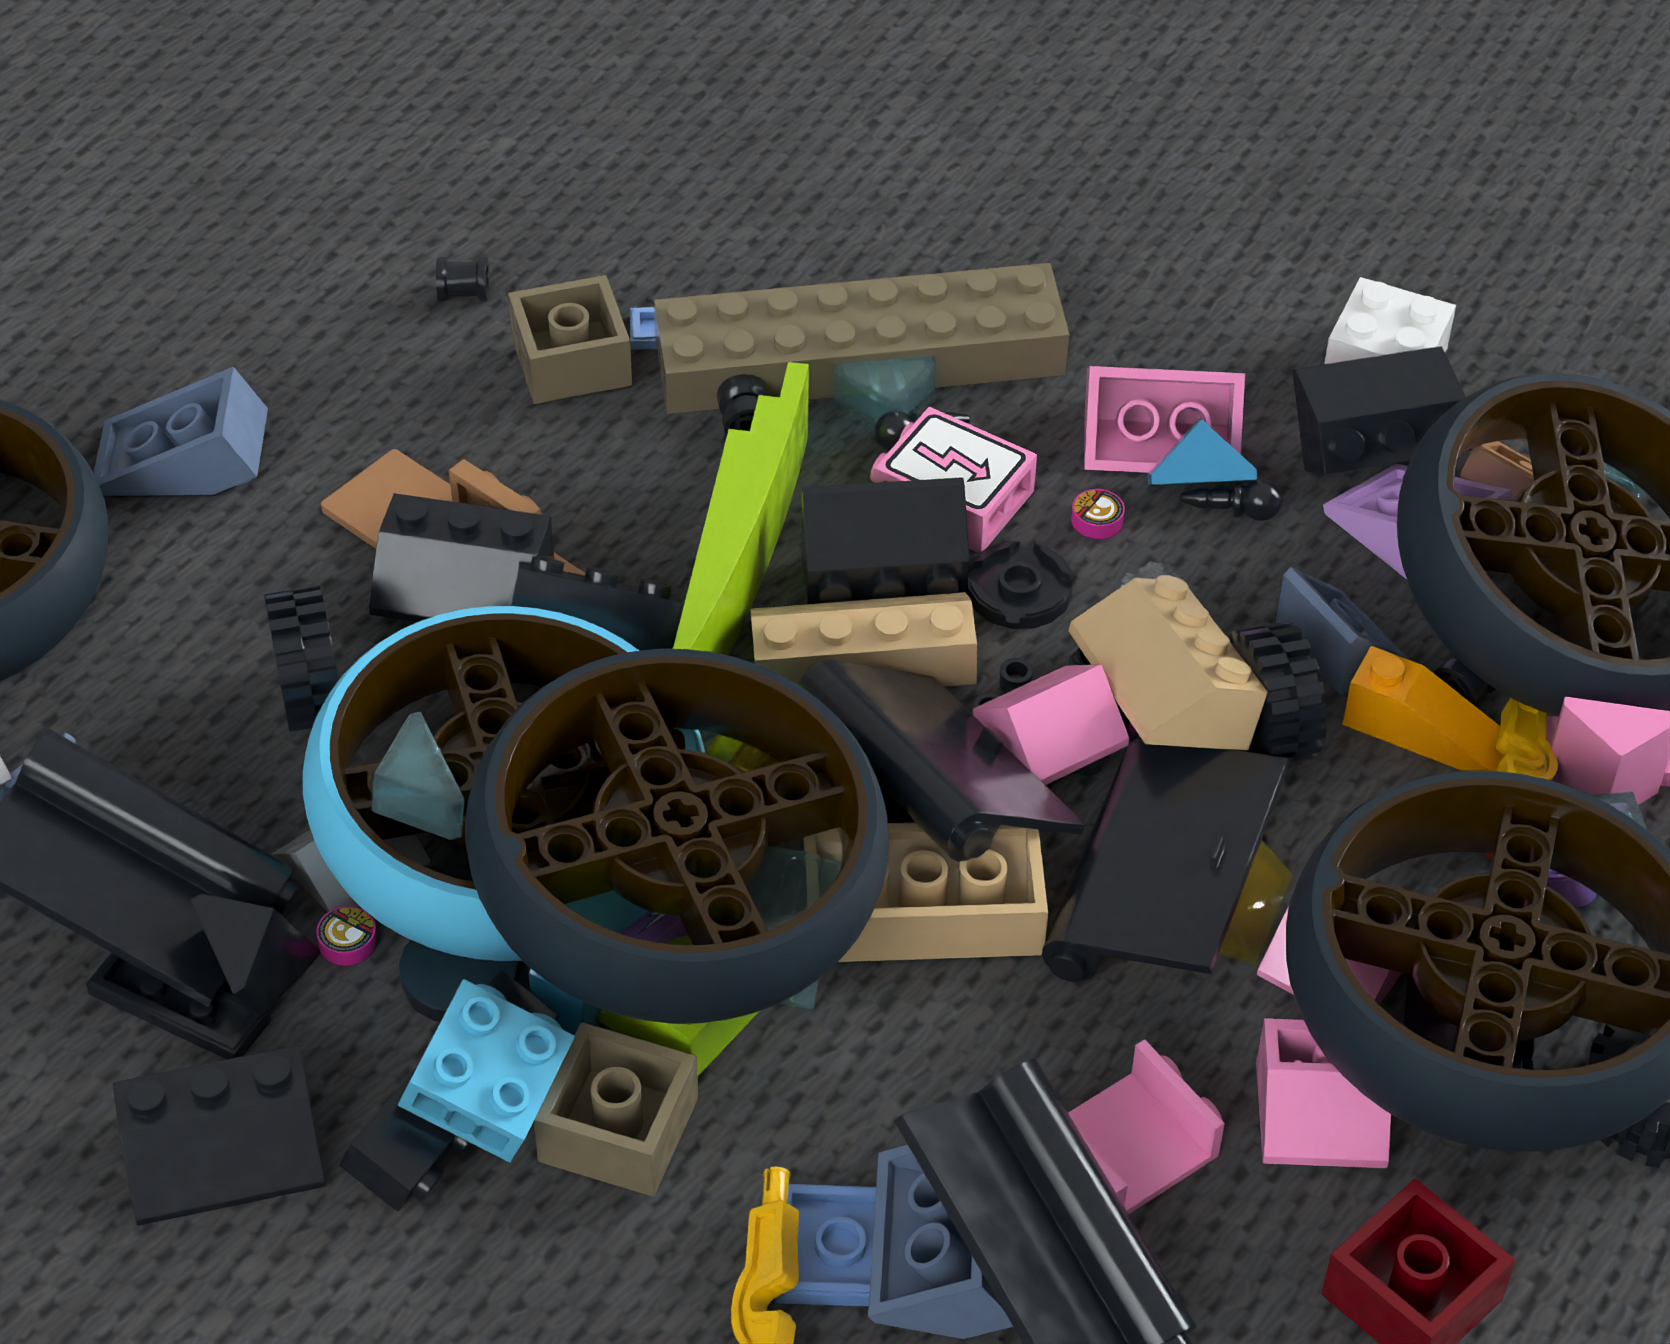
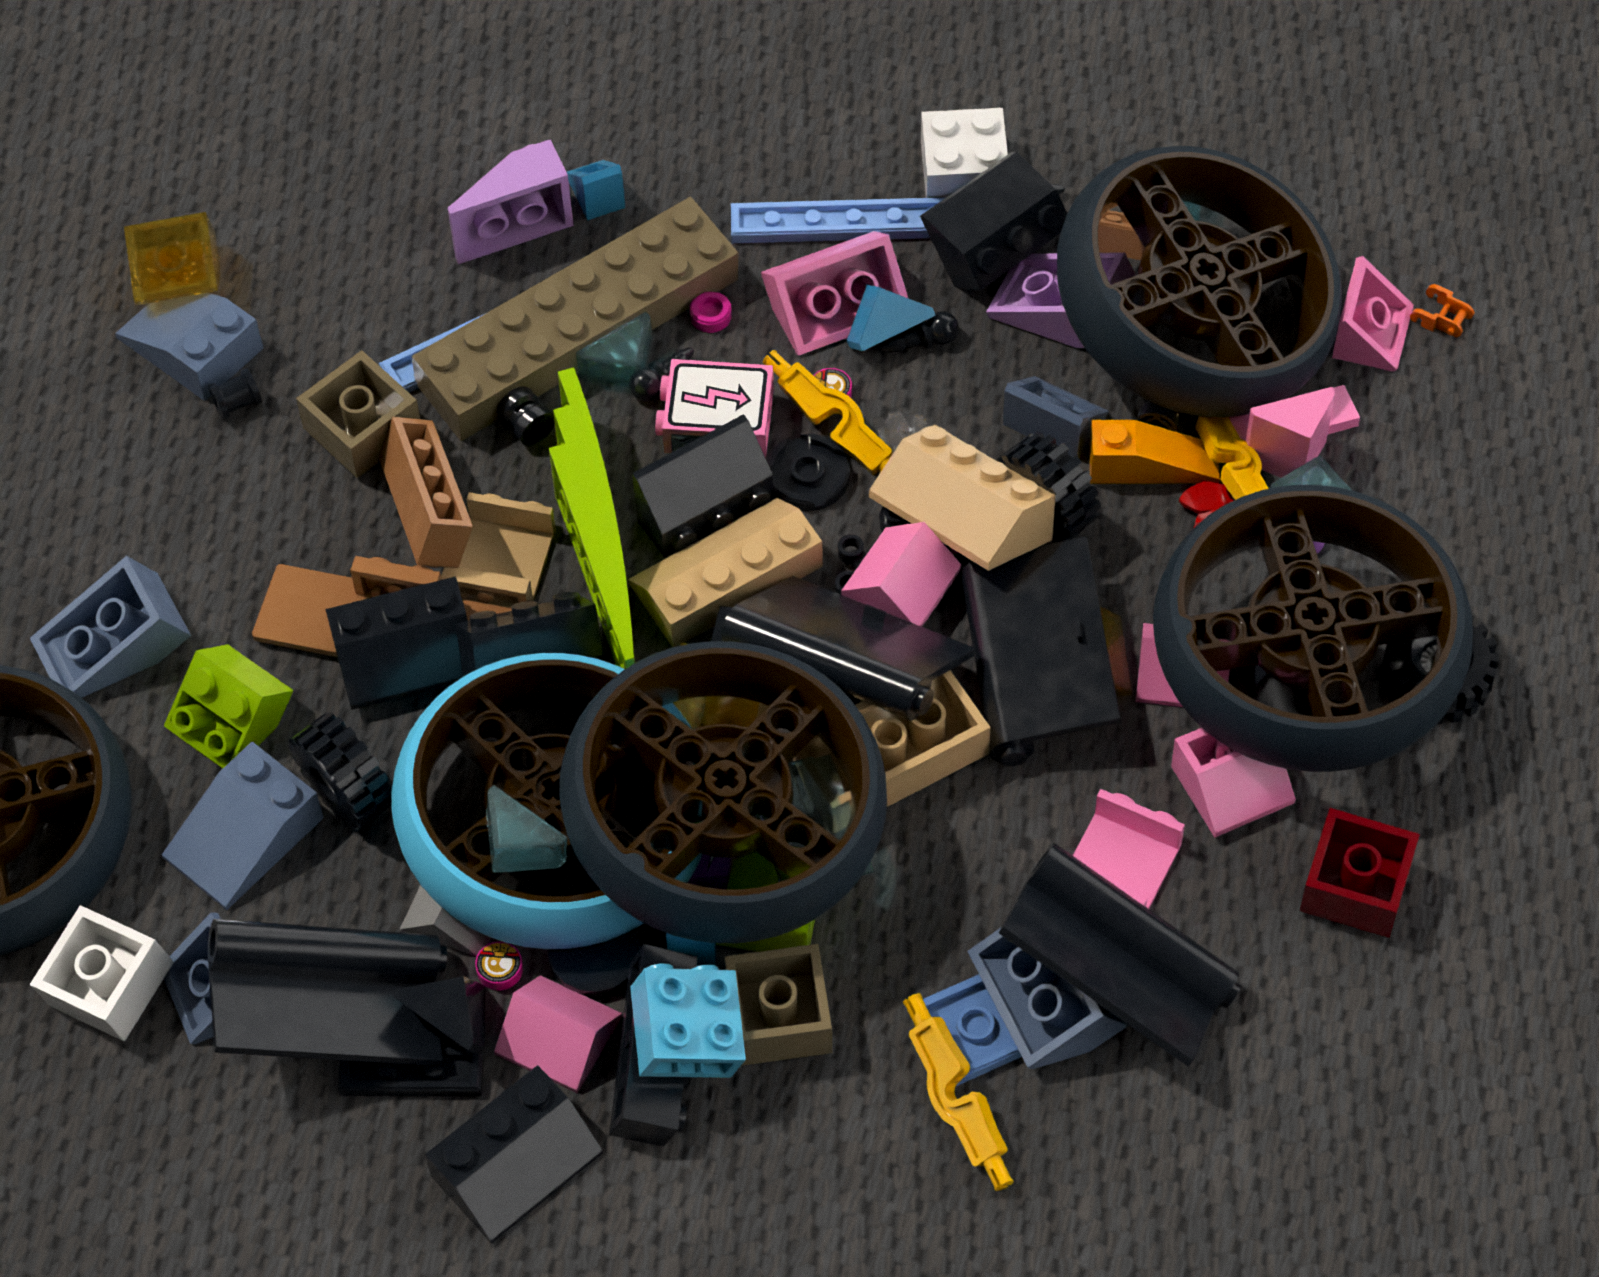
camera: 25 degrees left, 10 degrees up
(179, 677) = (243, 825): none -> sand blue slope
(242, 552) = (226, 704): none -> lime slope
(357, 1028) = (555, 1031): none -> bright pink slope
(461, 216) = (194, 339): none -> sand blue slope
(484, 131) = (172, 258): none -> clear yellow slope
(579, 432) = (425, 492): none -> medium nougat brick
(637, 528) = (504, 550): none -> tan panel
(855, 206) = (512, 203): none -> lavender slope
(964, 233) = (598, 188): none -> dark azure slope
(1013, 392) = (710, 312): none -> dark pink tile
(1077, 519) = (821, 402): none -> yellow piece
(1190, 350) = (828, 219): none -> light blue tile

